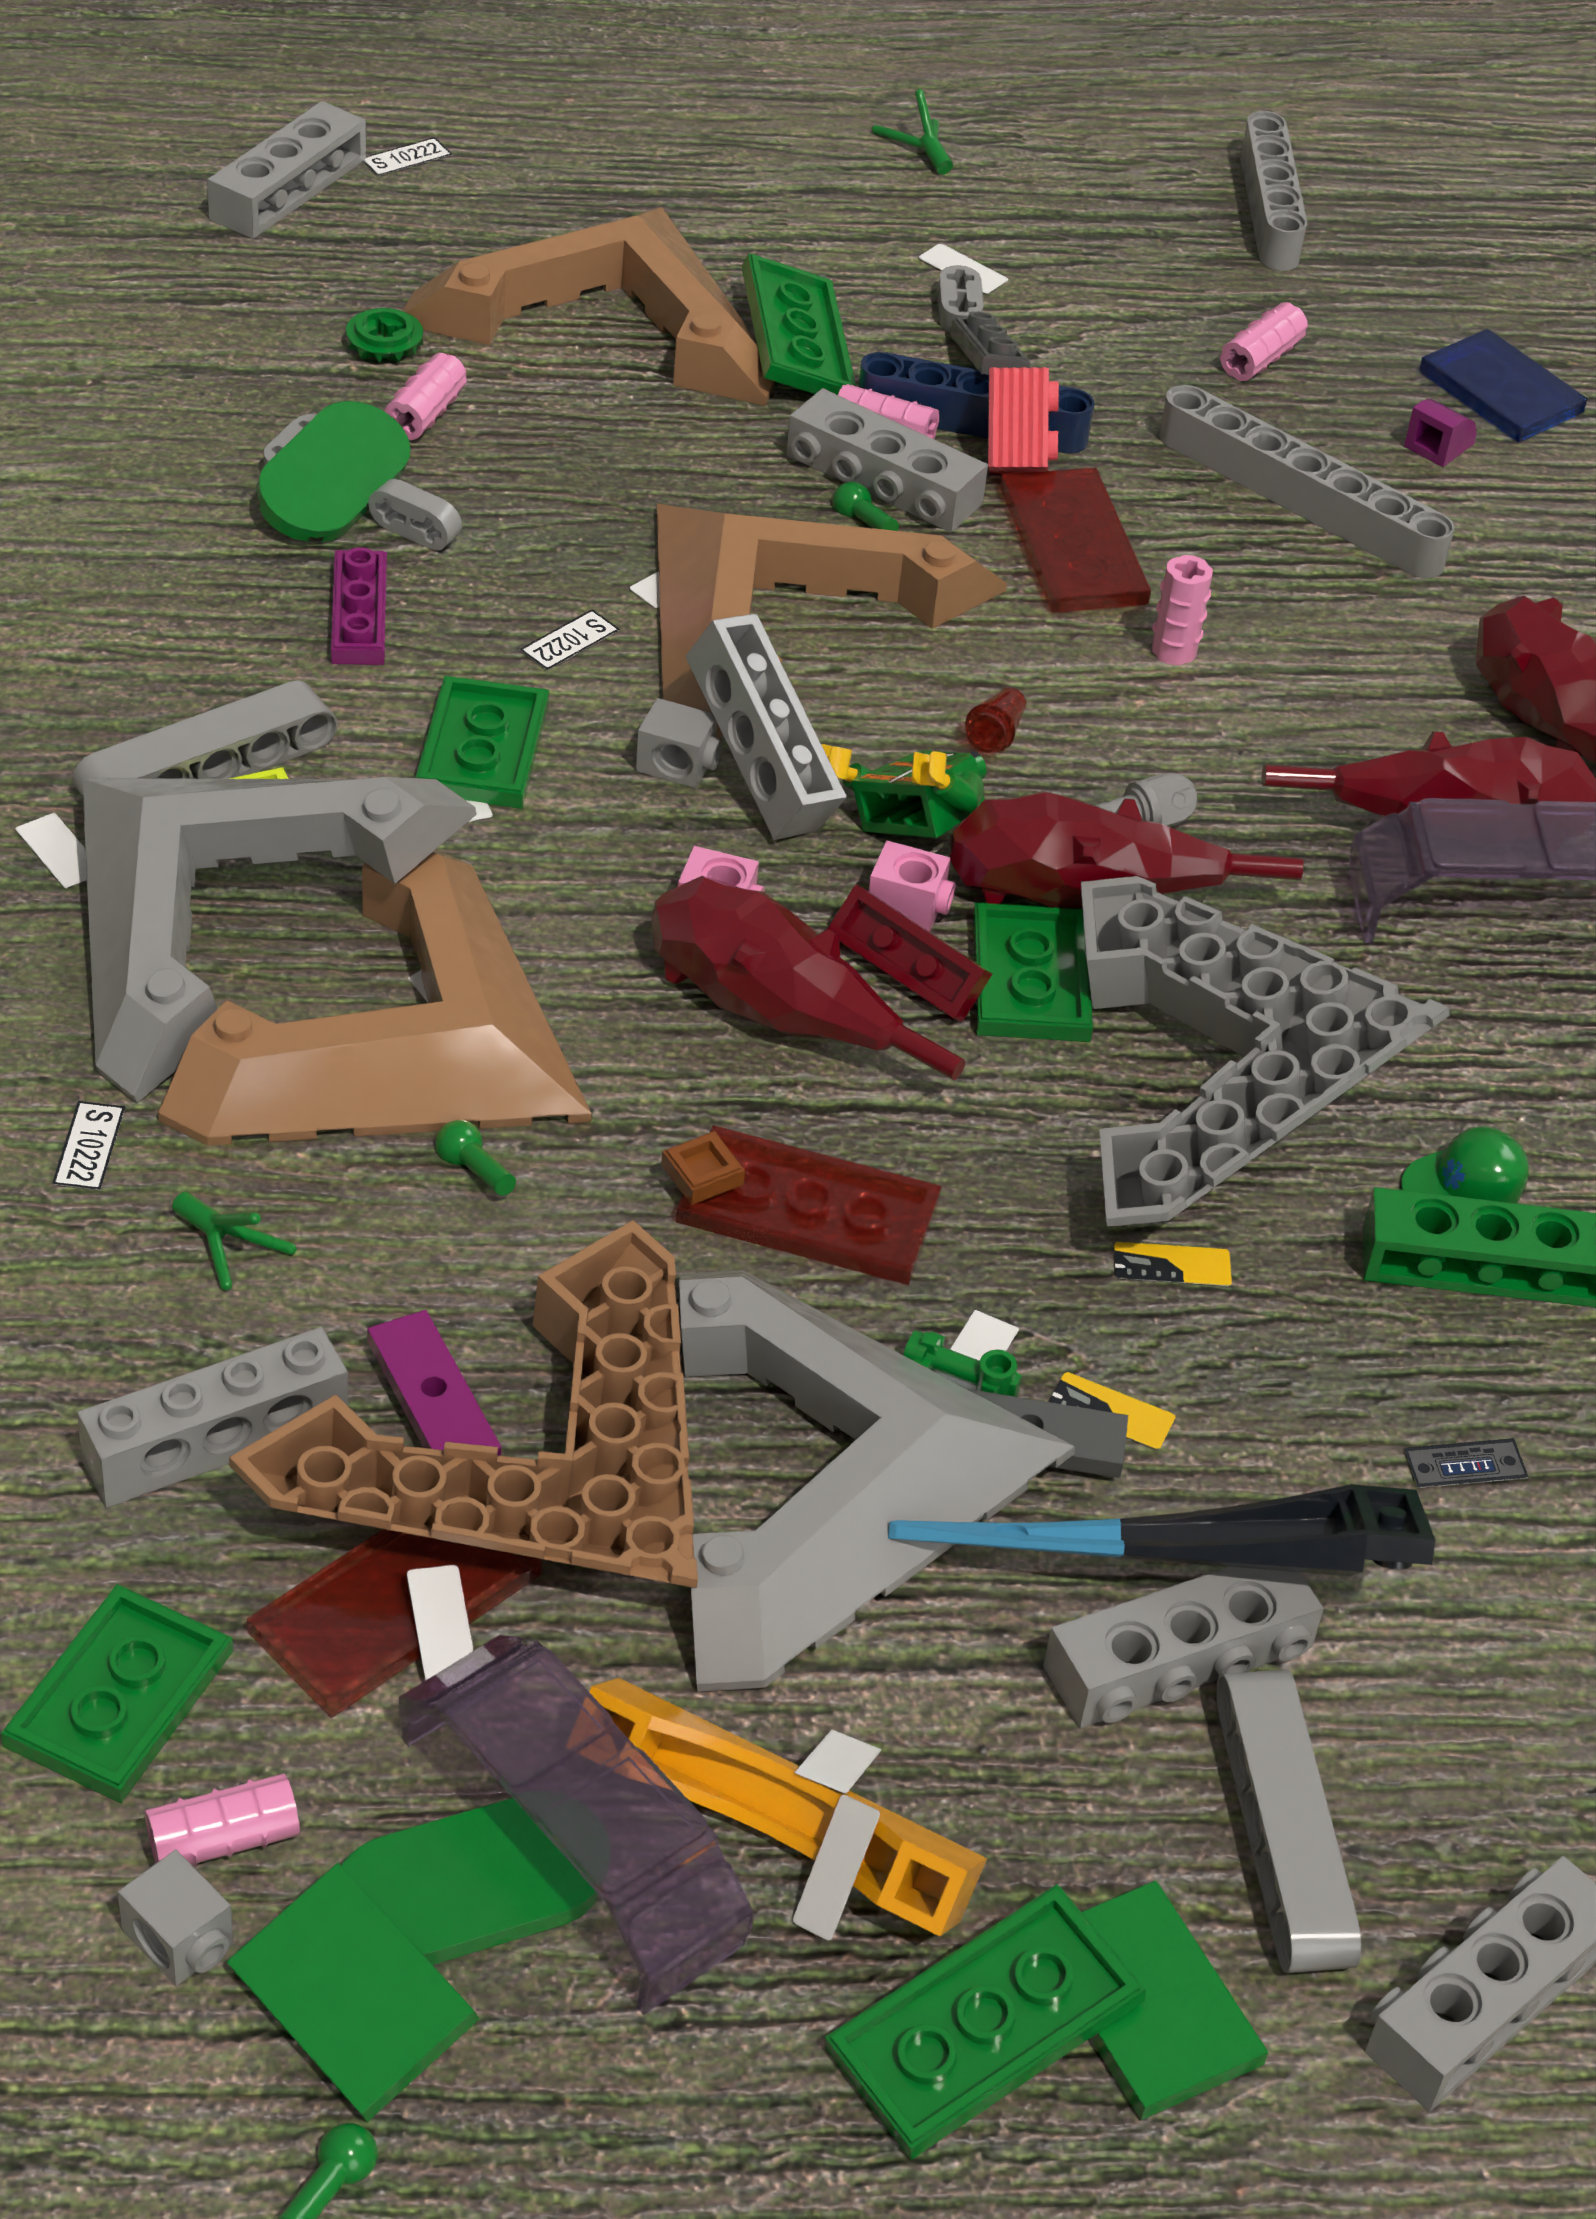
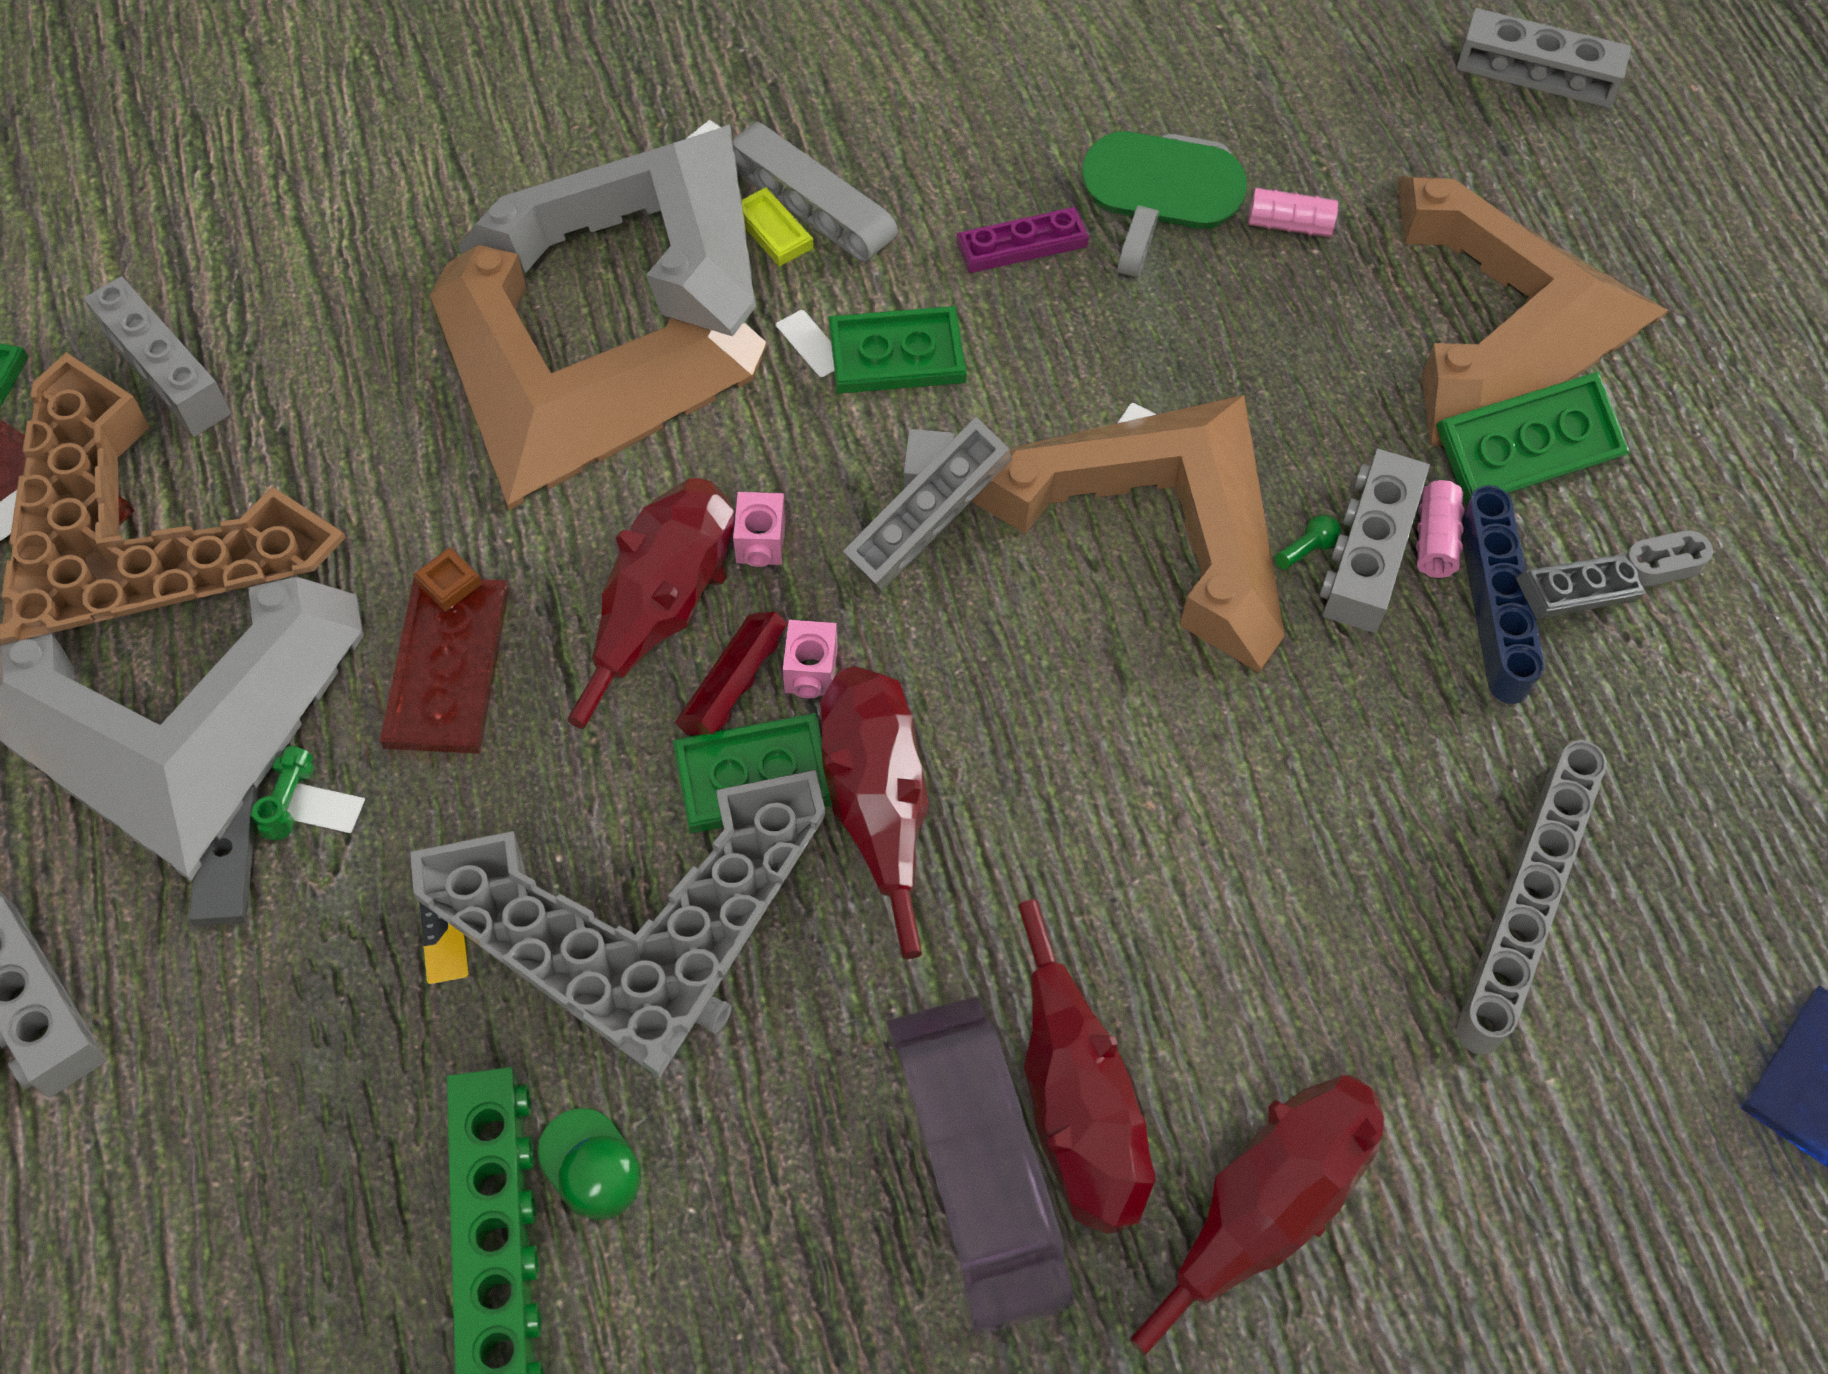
camera: 80 degrees right, 15 degrees up
(88, 1145) = (415, 239): white sticker -> none
(218, 1225) = (340, 318): green plant -> none
(400, 332) = (1366, 159): green gear -> none
(406, 156) = (1632, 131): white sticker -> none
(429, 1383) = (202, 470): magenta tile -> none
(462, 1143) = (459, 436): green bar -> none
(569, 639) = (1049, 378): white sticker -> none
(915, 794) = (914, 634): green torso -> none
(943, 256) = (1730, 556): white sticker -> none
(995, 721) = (1057, 688): clear red cone -> none
(1020, 420) = (1463, 623): coral brick -> none
(1075, 540) = (1351, 712): clear red tile -> none
(1145, 1422) = (274, 913): yellow sticker -> none
(1160, 798) = (981, 822): light grey arm -> none
(1181, 609) = (1245, 801): bright pink axle -> none
(1263, 341) = (1751, 826): bright pink axle -> none
(1301, 1533) = (70, 1046): black plate -> none
(1439, 432) = (1696, 1018): magenta brick -> none
(1465, 1463) = (258, 1201): sticker -> none

